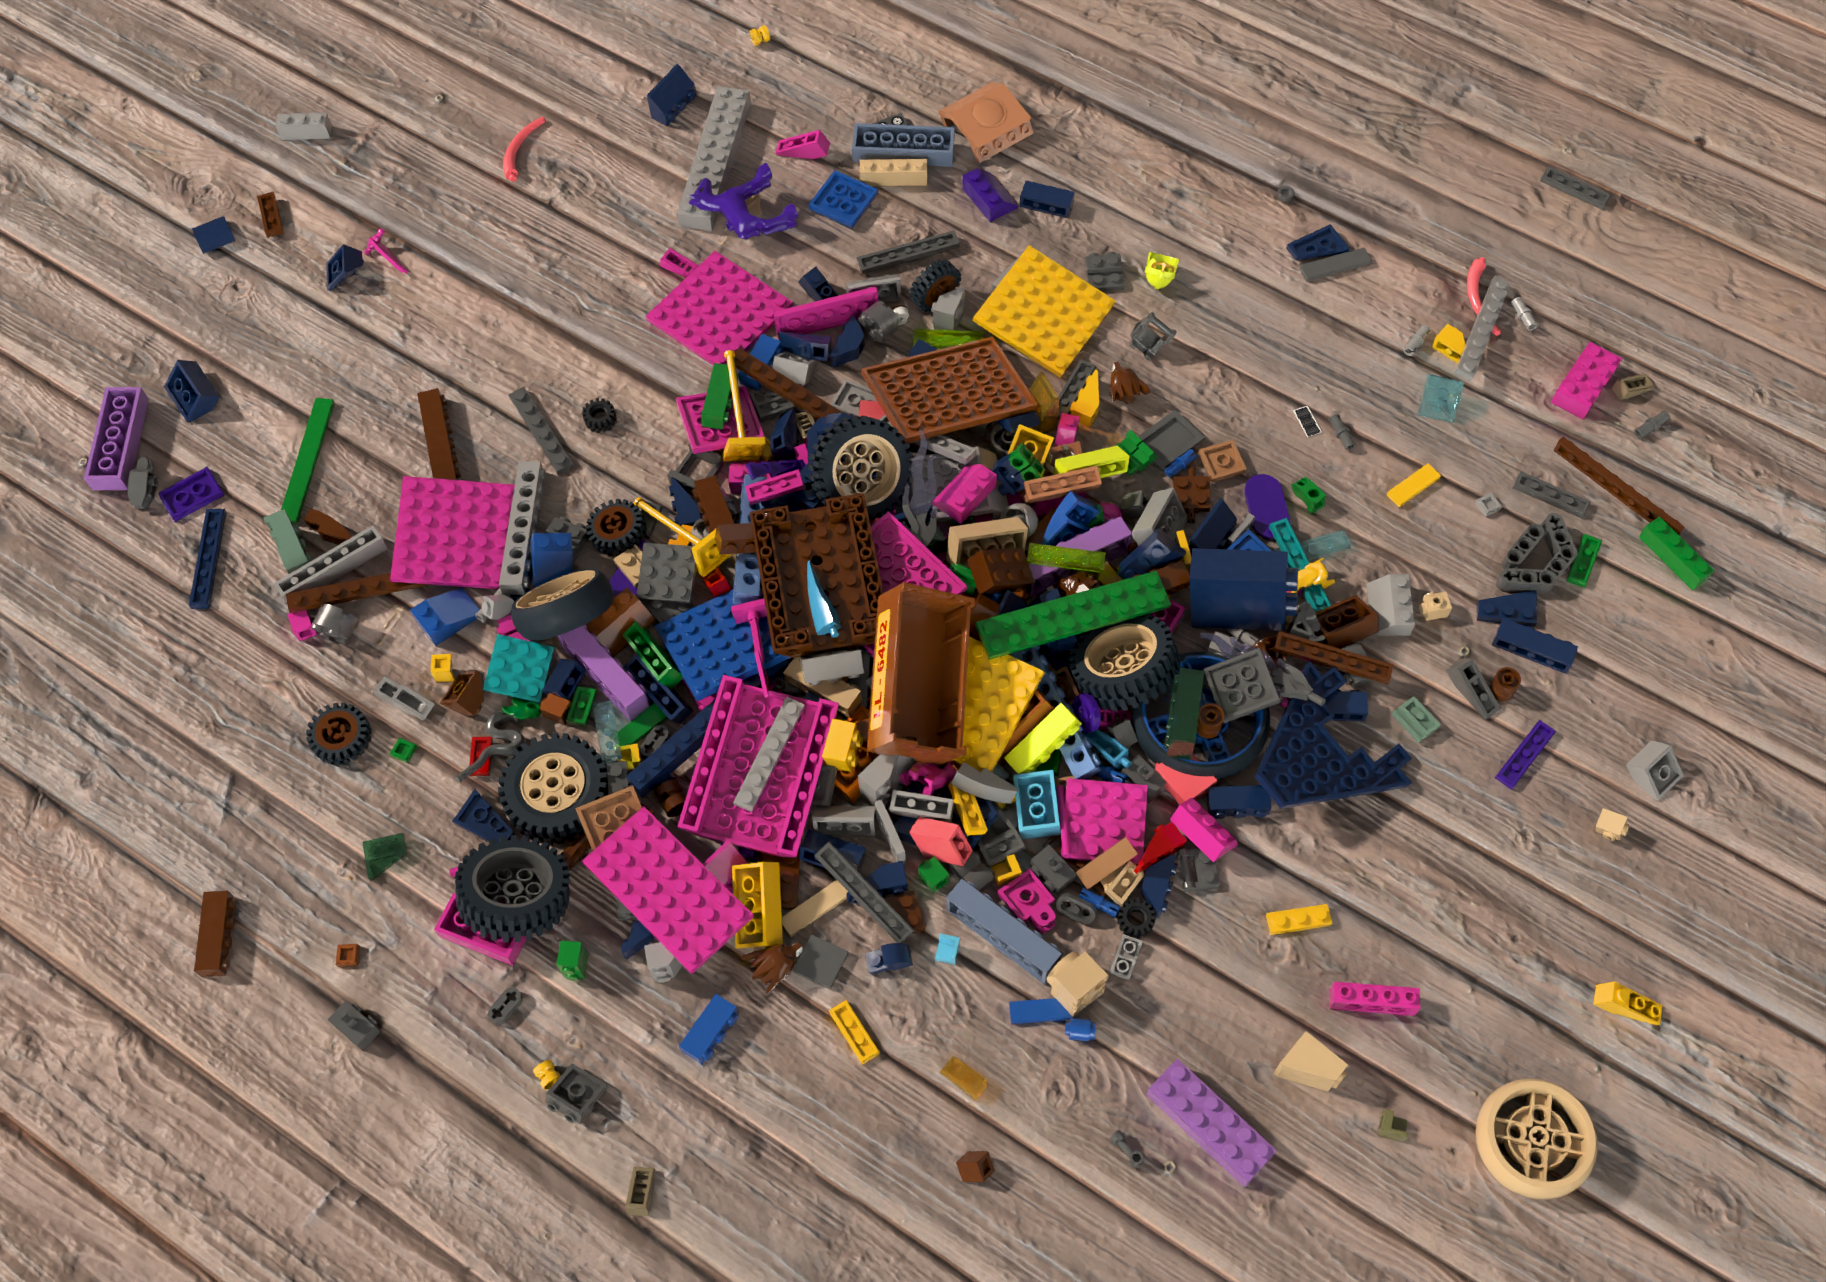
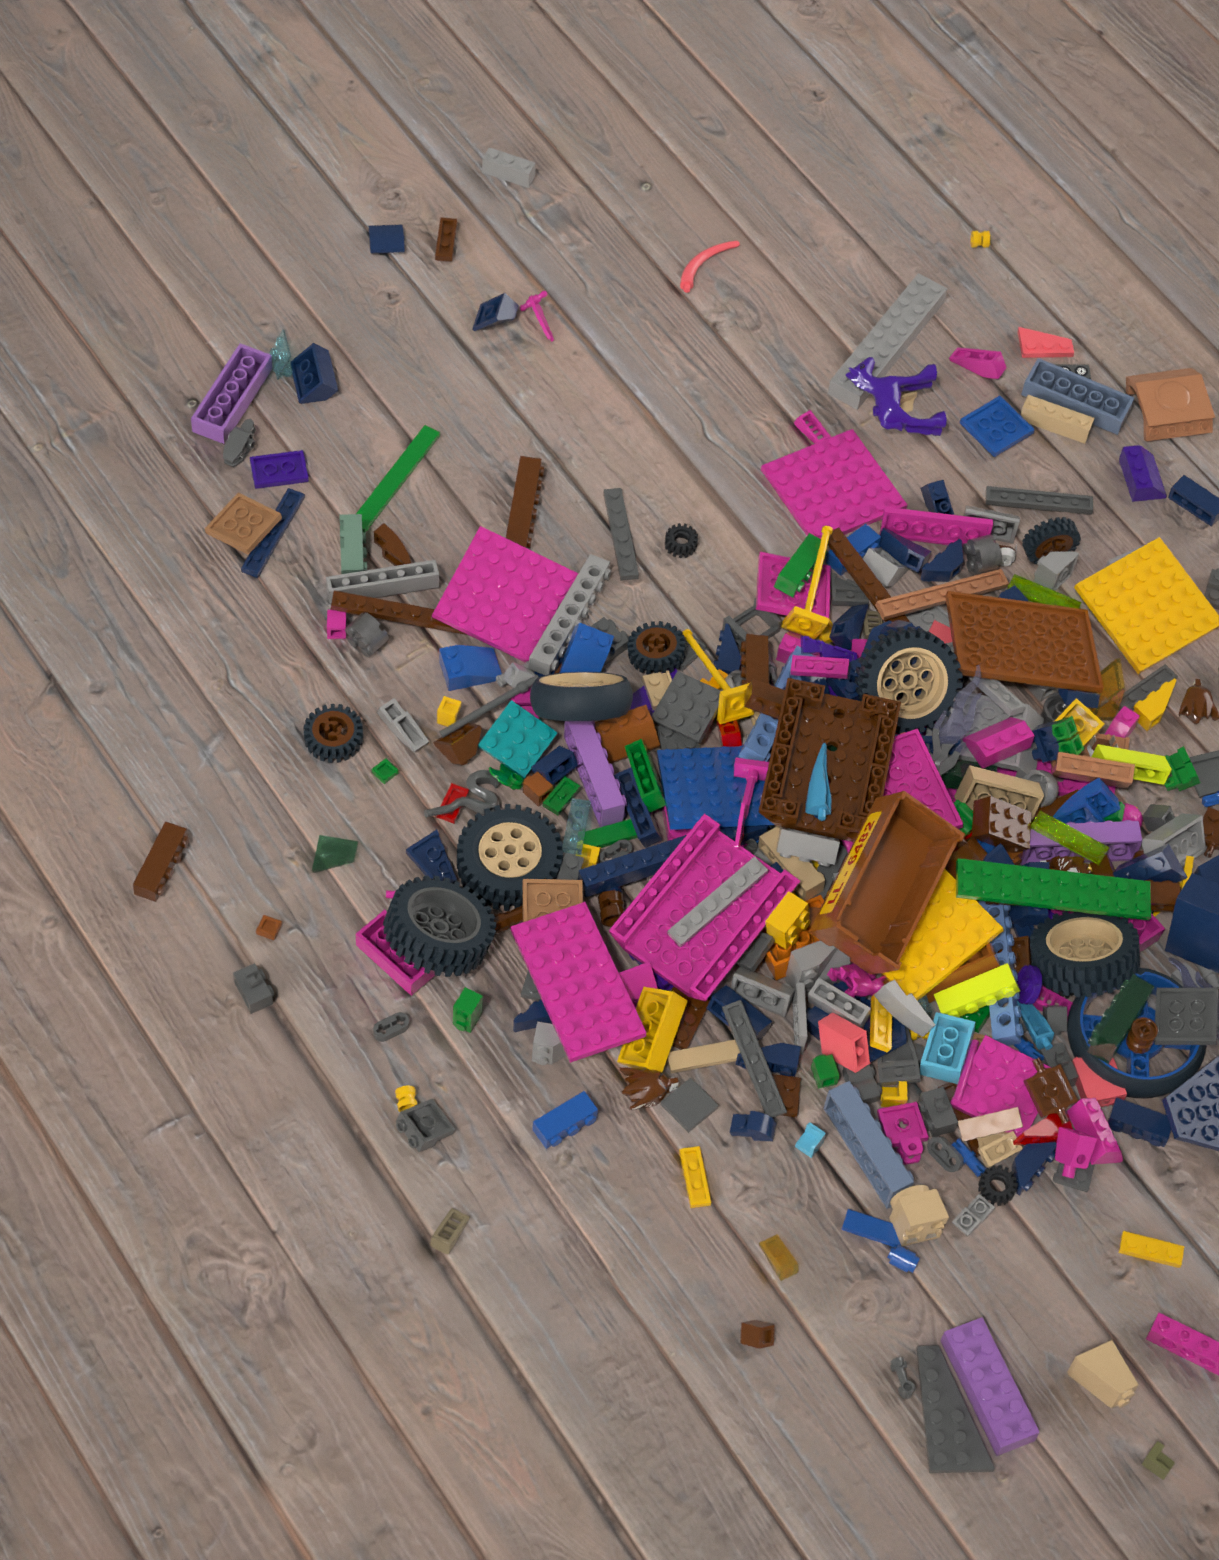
camera: 15 degrees right, 5 degrees down
(152, 385) = (281, 356): none -> clear light blue hinge
(174, 561) = (243, 523): none -> medium nougat plate
(503, 616) = (521, 687): none -> dark grey bar
(671, 95) = (869, 266): dark blue slope -> none
(852, 376) = (935, 595): none -> nougat plate
(853, 110) = (1040, 344): none -> coral wing
(1148, 808) = (1050, 1091): none -> reddish brown plate
(1191, 1180) = (949, 1429): none -> dark grey wing
(1193, 856) = (1074, 1150): none -> dark pink torso

